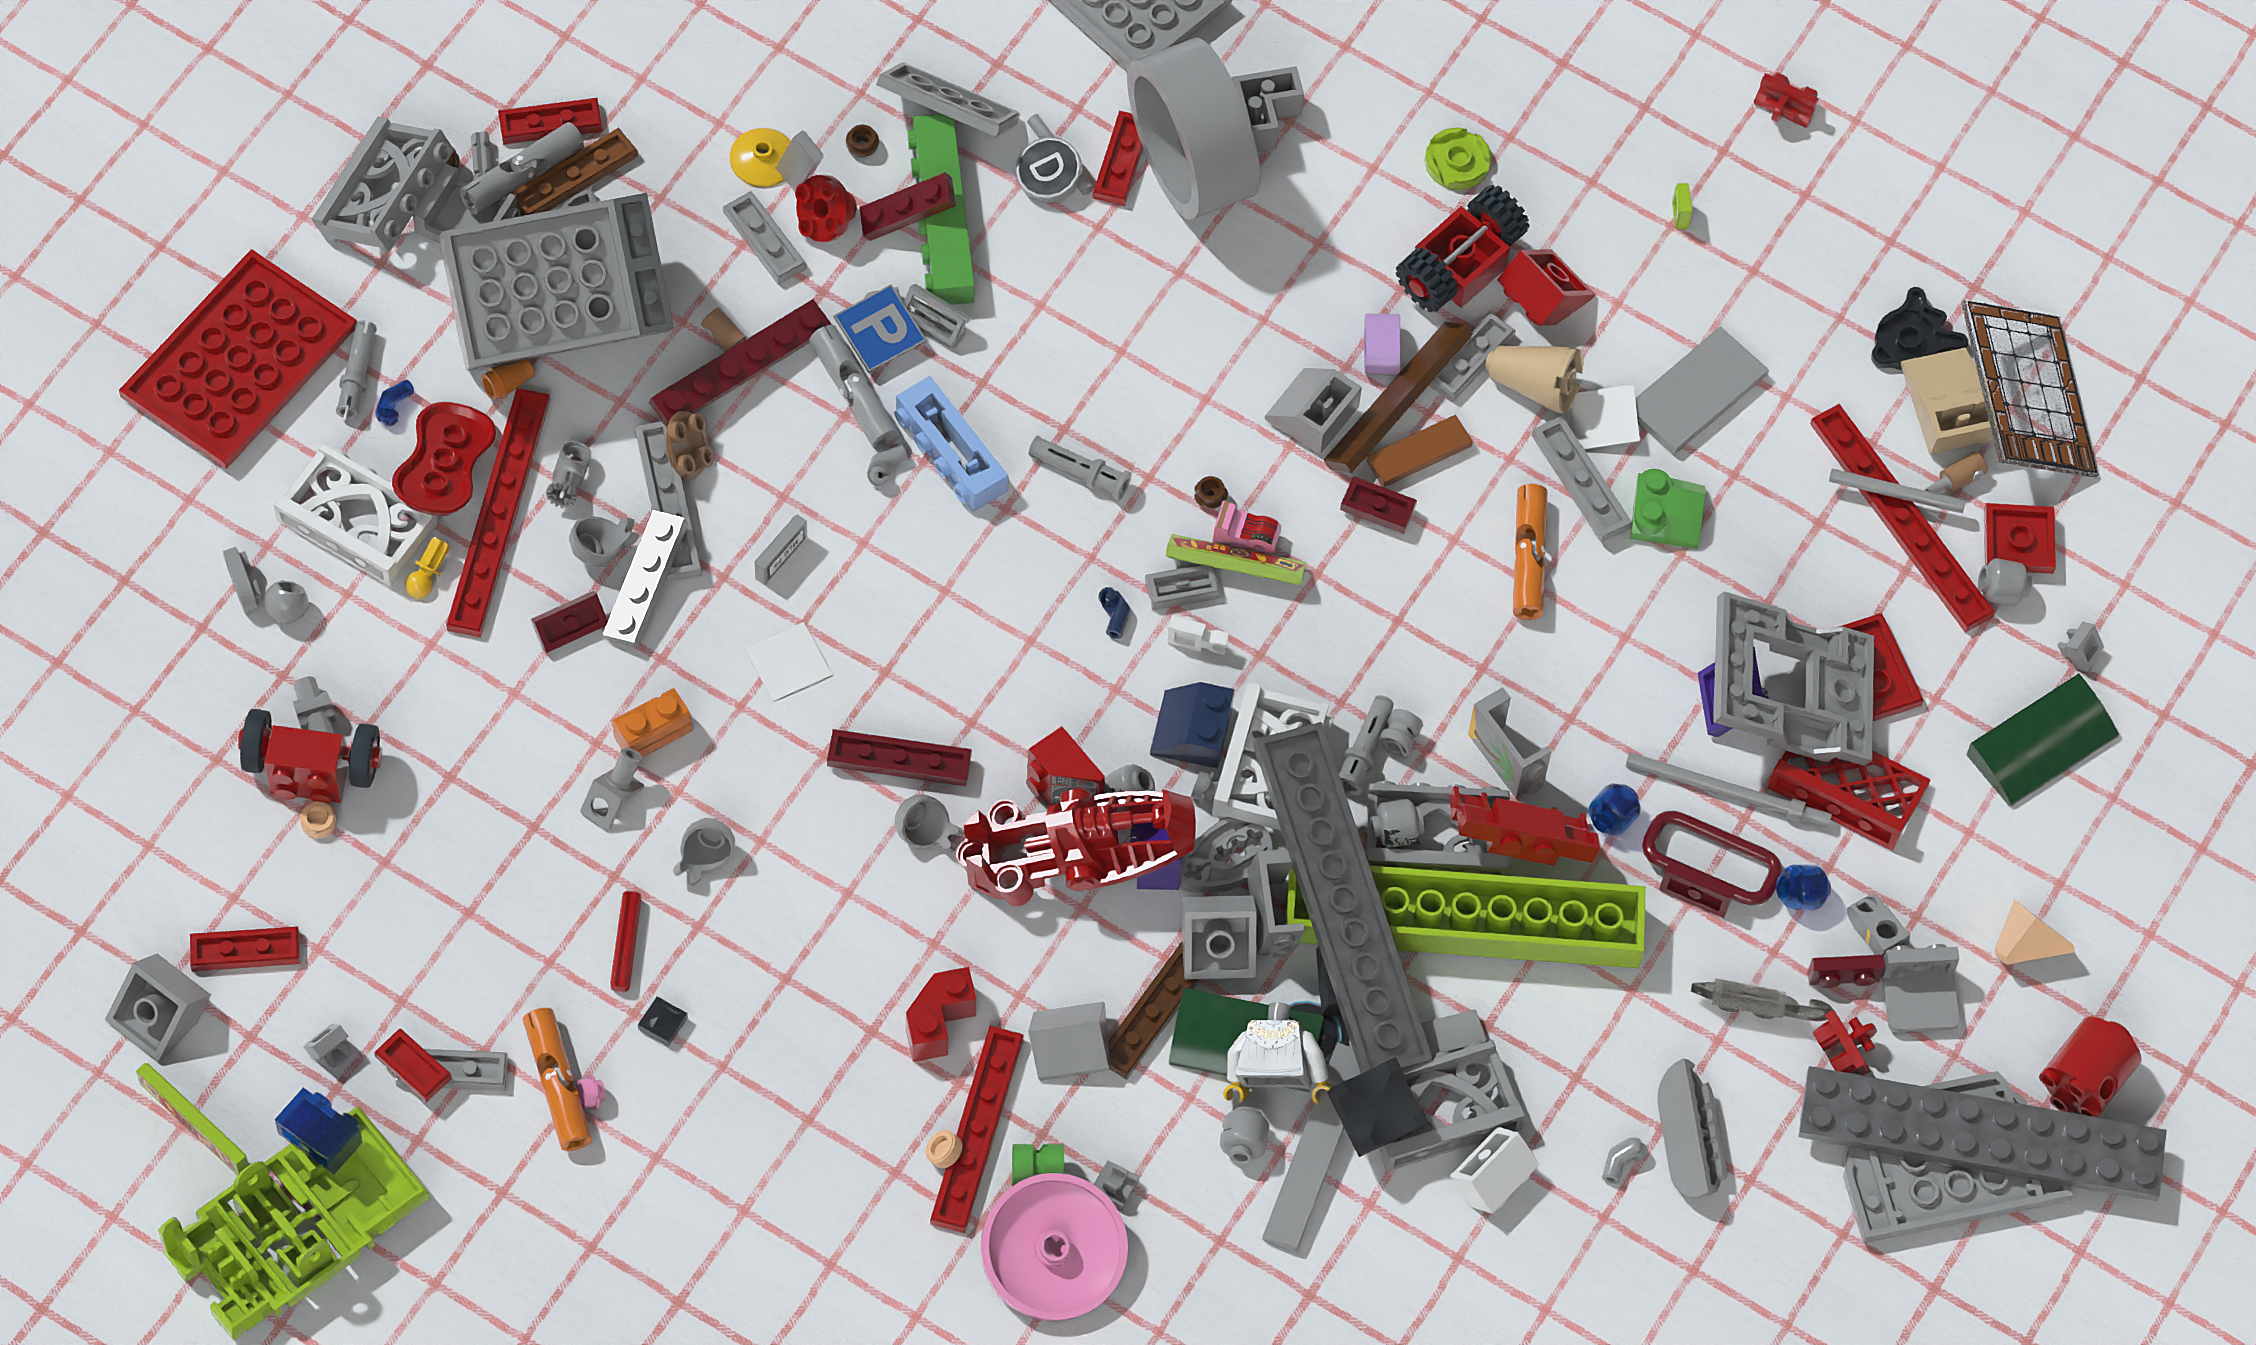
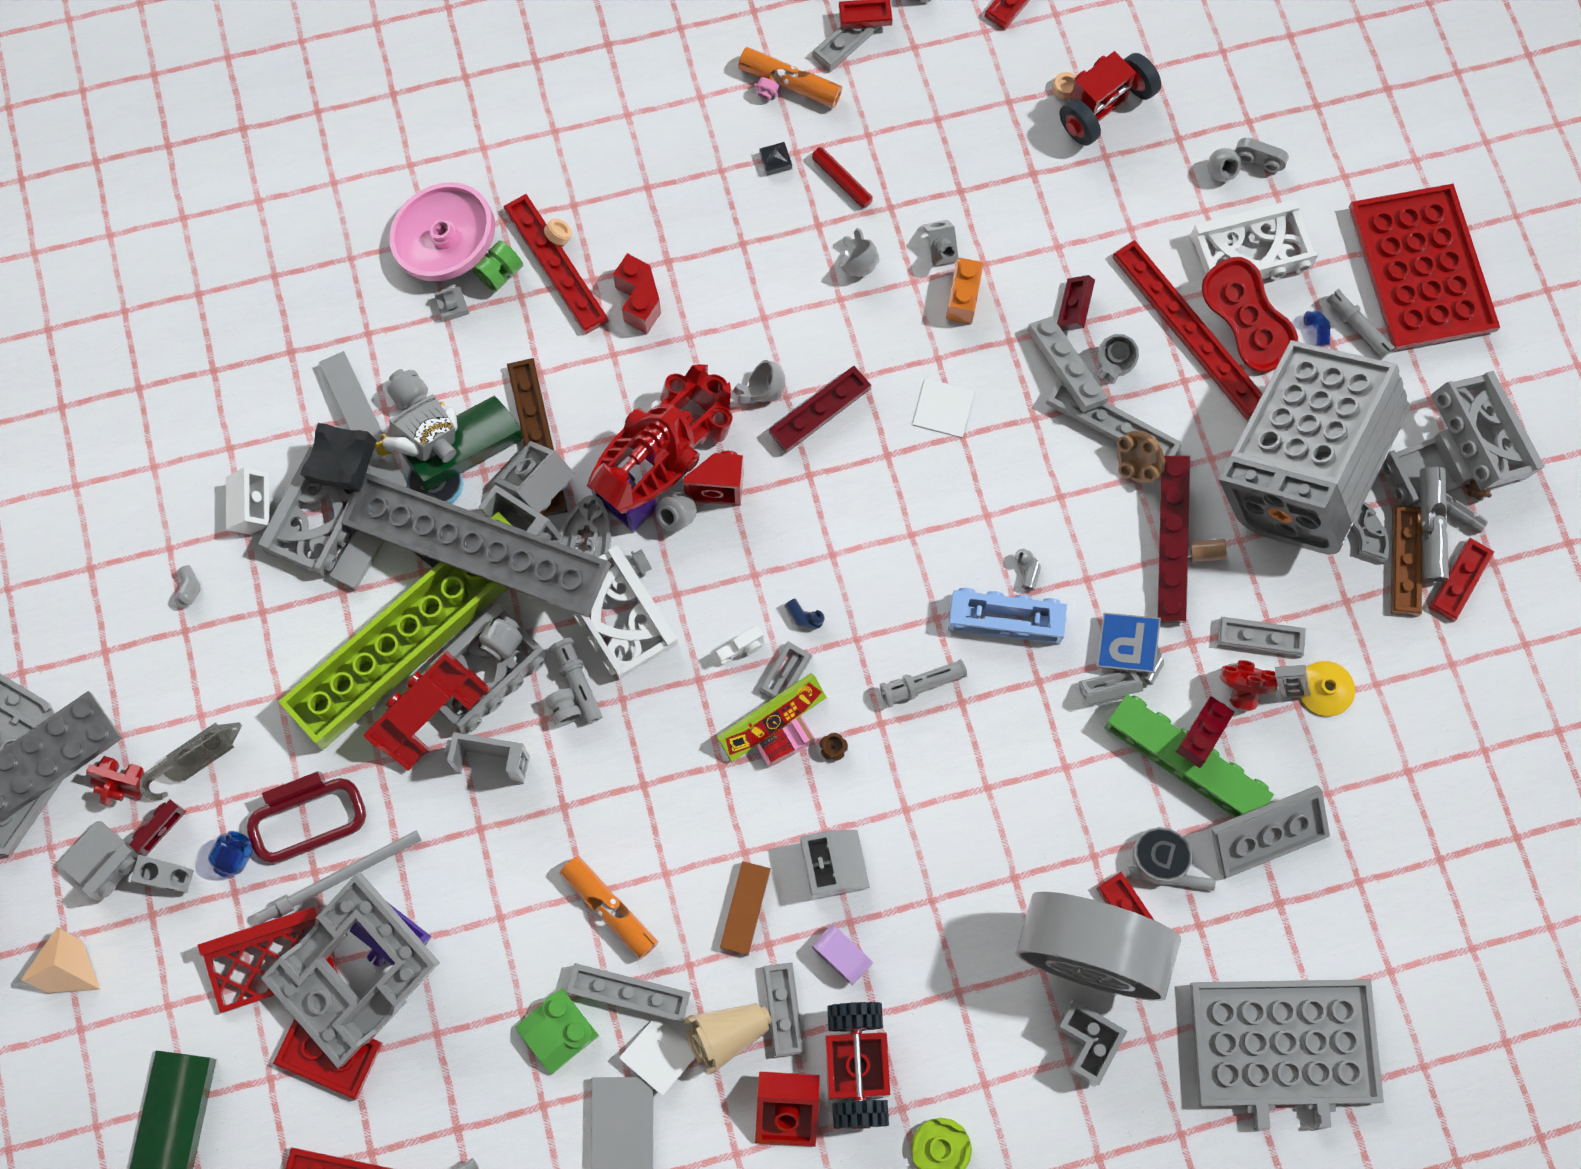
camera: 135 degrees right, 10 degrees up
(312, 707) = (1137, 129): light grey axle -> none
(419, 583) = (1182, 258): yellow axle -> none
(574, 468) = (1179, 379): light grey connector -> none
(780, 549) = (1020, 456): light grey tile -> none
(862, 133) = (1292, 752): reddish brown plate -> none
(862, 399) = (1083, 590): light grey piece -> none
(1070, 1041) = (558, 350): light grey slope -> none
(1193, 723) = (684, 591): dark blue slope -> none
(1378, 505) = (729, 842): dark red plate -> none
(1398, 397) = (794, 929): reddish brown tile -> none
(1614, 809) = (391, 788): clear blue head -> none
(1690, 1131) = (156, 635): light grey brick -> none

